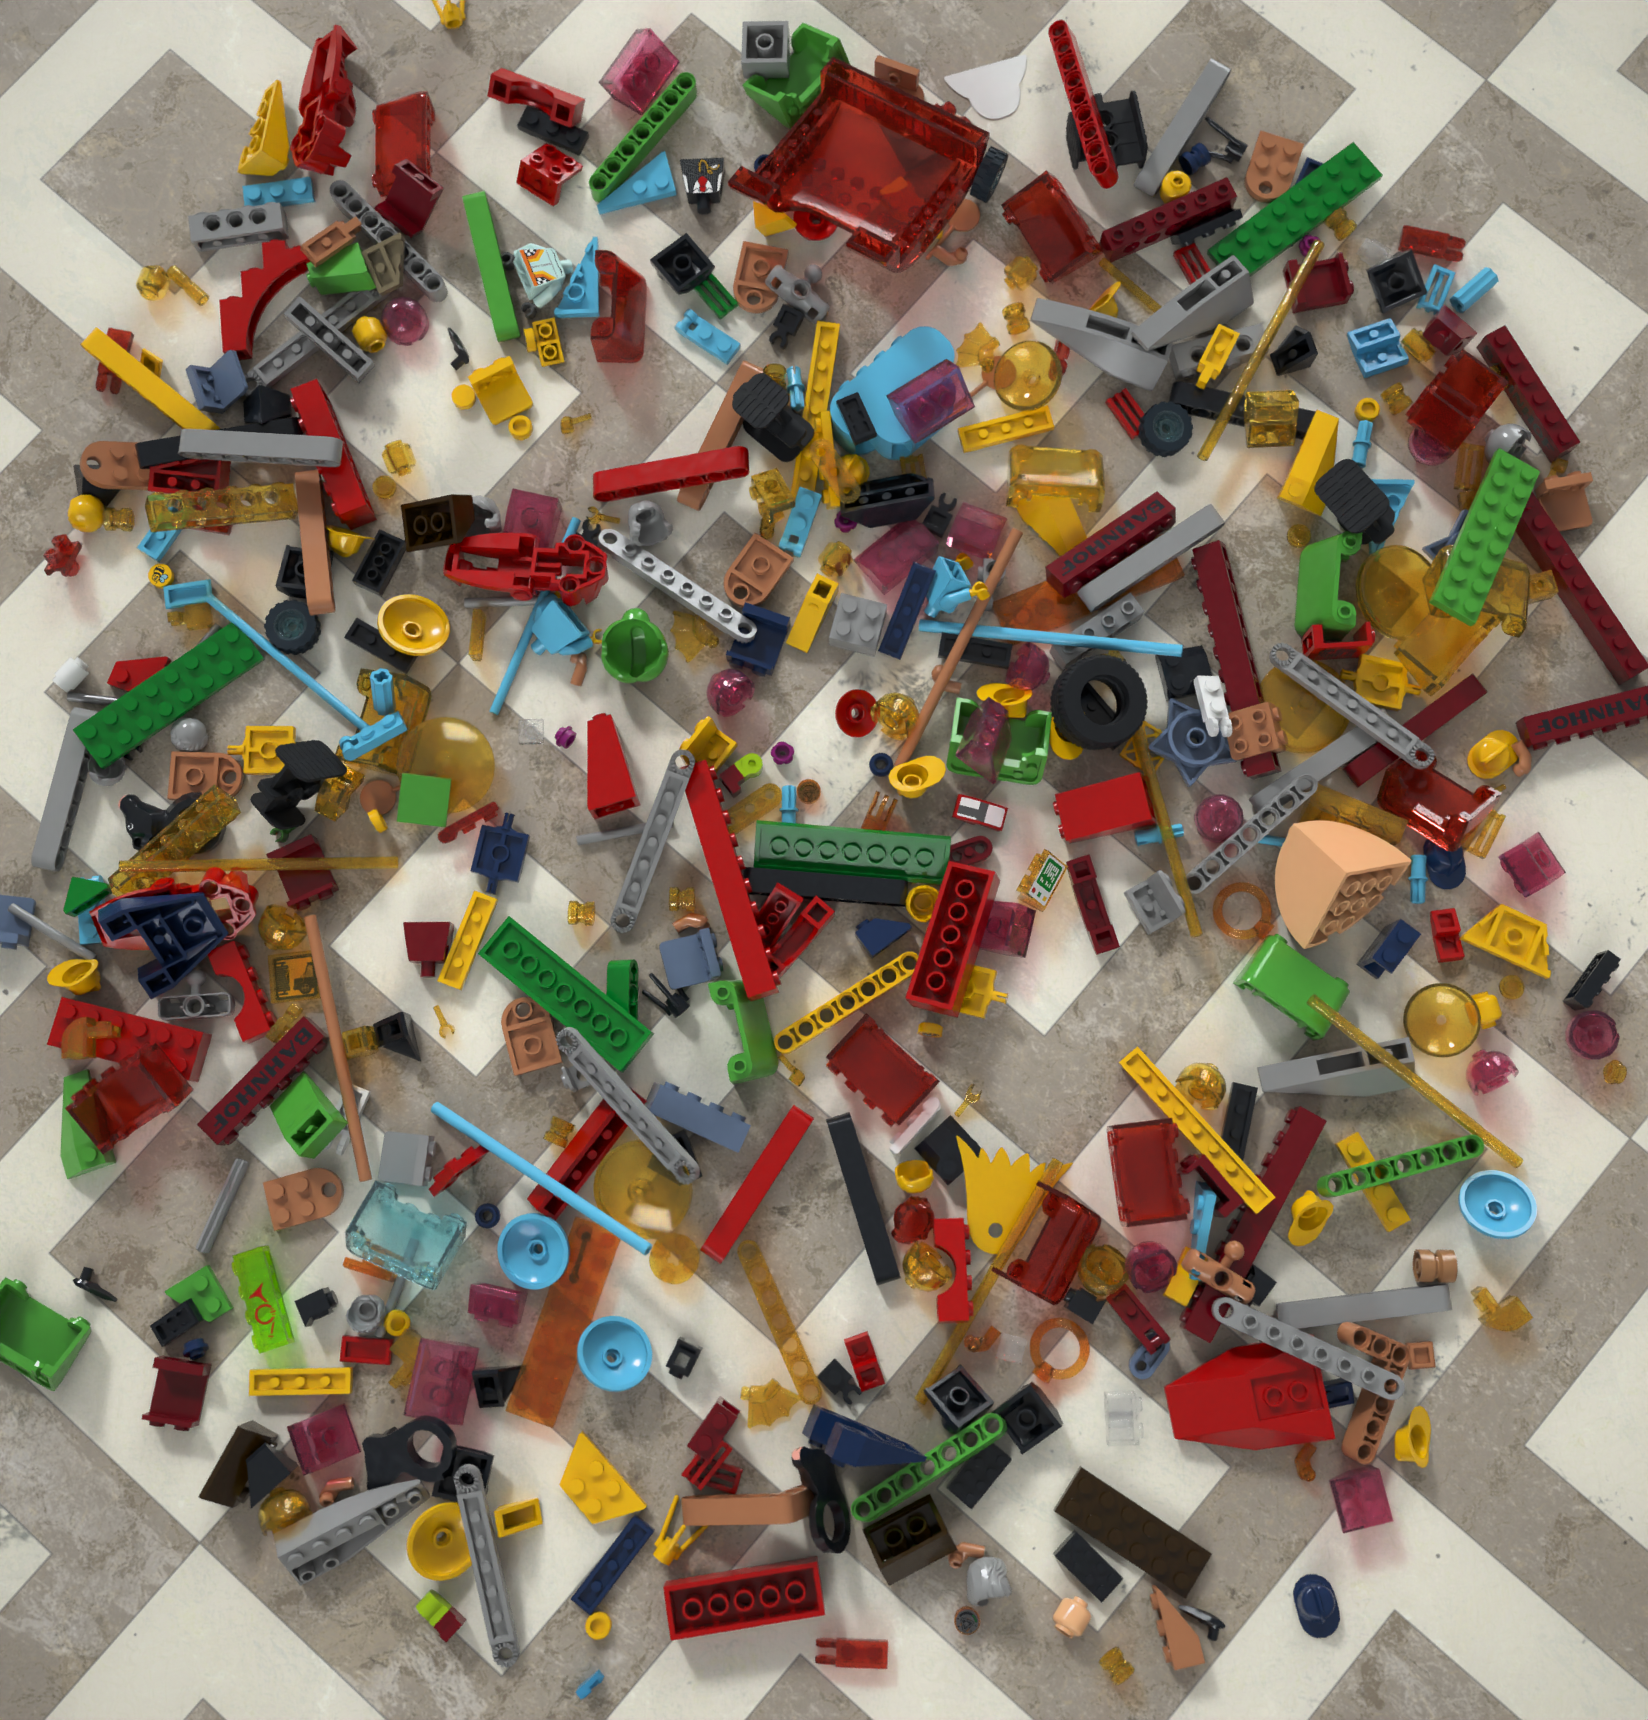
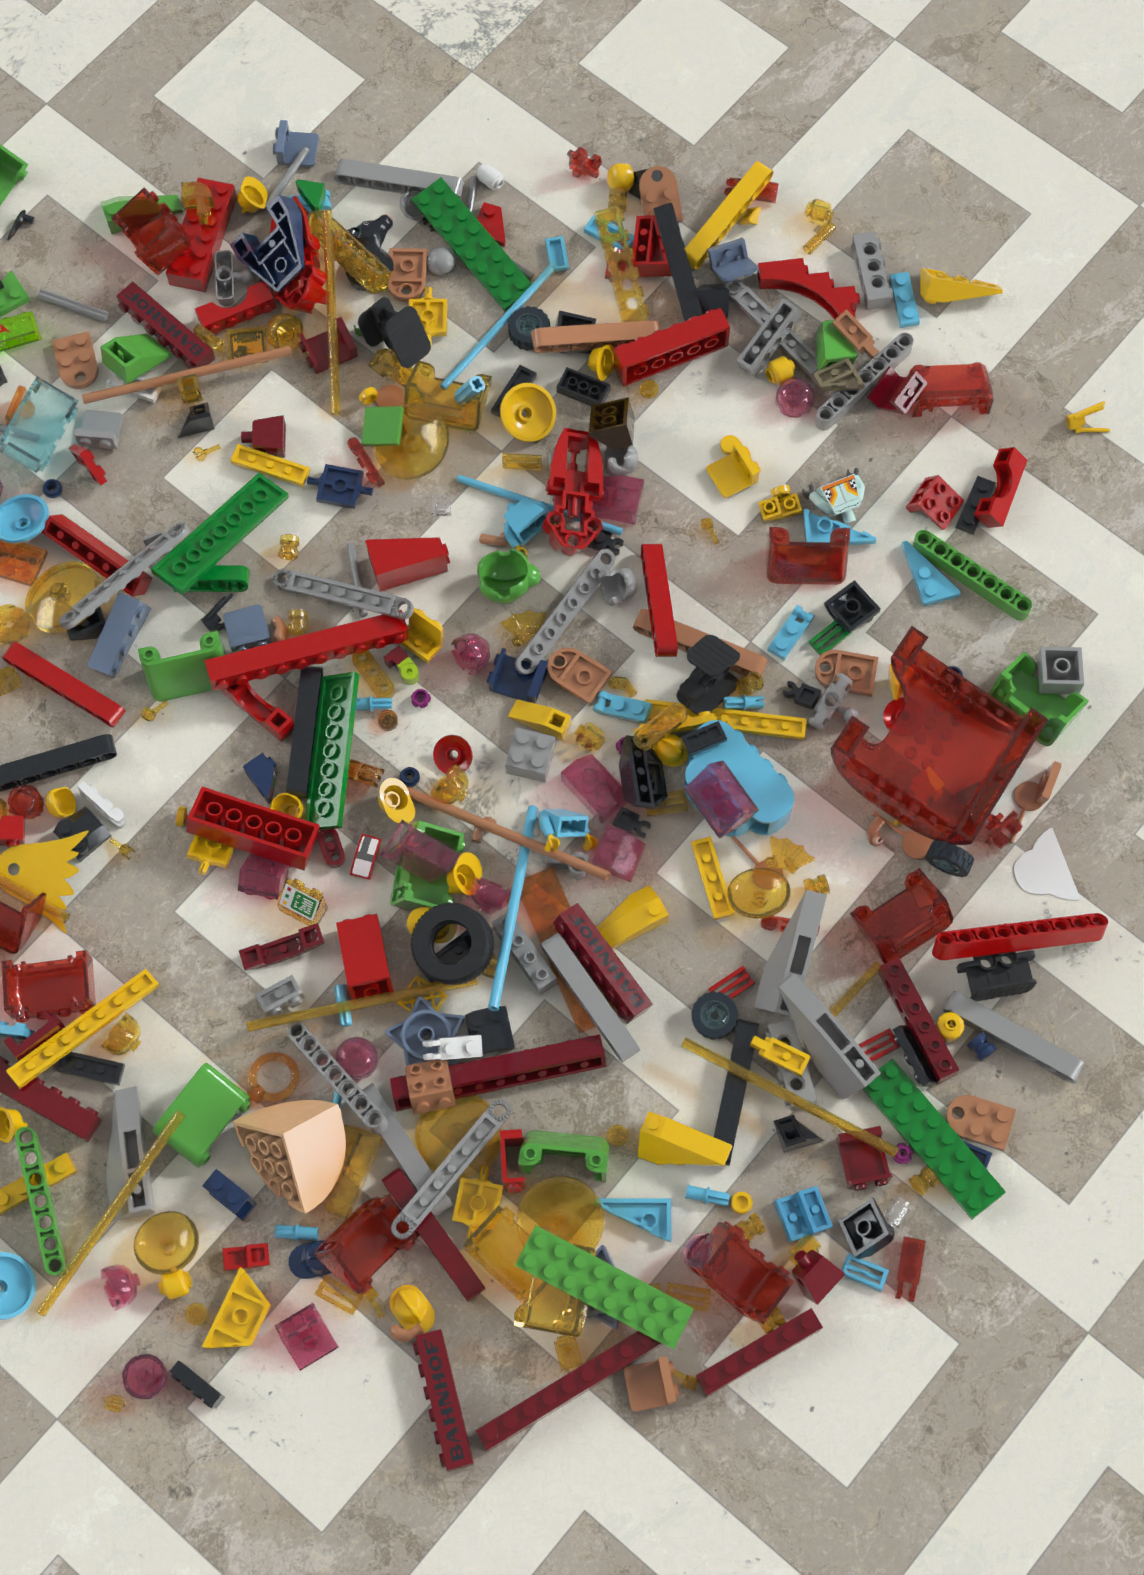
camera: 90 degrees right, 10 degrees down
(161, 575) = (572, 234): yellow tile -> none
(195, 616) = (538, 260): clear yellow plate -> none
(260, 447) = (667, 288): light grey beam -> none
(325, 106) = (982, 325): red piece -> none
(372, 736) = (432, 384): medium azure plate -> none
(398, 458) = (672, 397): clear yellow head -> none
(459, 348) = (770, 441): black bar -> none
(491, 266) = (838, 461): bright green beam -> none
(520, 427) = (704, 489): yellow tile -> none
(530, 1038) = (189, 509): nougat plate -> none
(542, 1179) = (62, 528): medium azure piece -> none
(561, 1126) = (113, 536): clear yellow wheel -> none
(565, 737) = (436, 530): magenta plate -> none
(600, 517) = (627, 551): clear yellow hand -> none
(639, 71) = (1034, 570): clear pink slope -> none
(703, 181) = (933, 622): torso -> none
(771, 494) = (645, 682): clear yellow bracket -> none
(777, 912) = (279, 690): red piece -> none
(839, 1012) = (202, 742): yellow beam -> none
(880, 1071) = (148, 776): clear red windscreen -> none
(907, 610) = (542, 793): dark blue tile -> none
(978, 651) = (507, 855): black plate -> none
(1020, 273) = (860, 890): clear yellow head -> none
(1055, 474) = (666, 917): clear yellow windscreen -> none
(1106, 303) = (825, 962): yellow piece -> none
(1234, 148) = (995, 1085): black plant -> none
(1270, 418) = (721, 1102): clear yellow slope -> none
(1356, 502) = (631, 1172): black piece -> none
(1474, 290) = (863, 1306): medium azure axle -> none
(1508, 438) = (706, 1328): light grey cylinder -> none

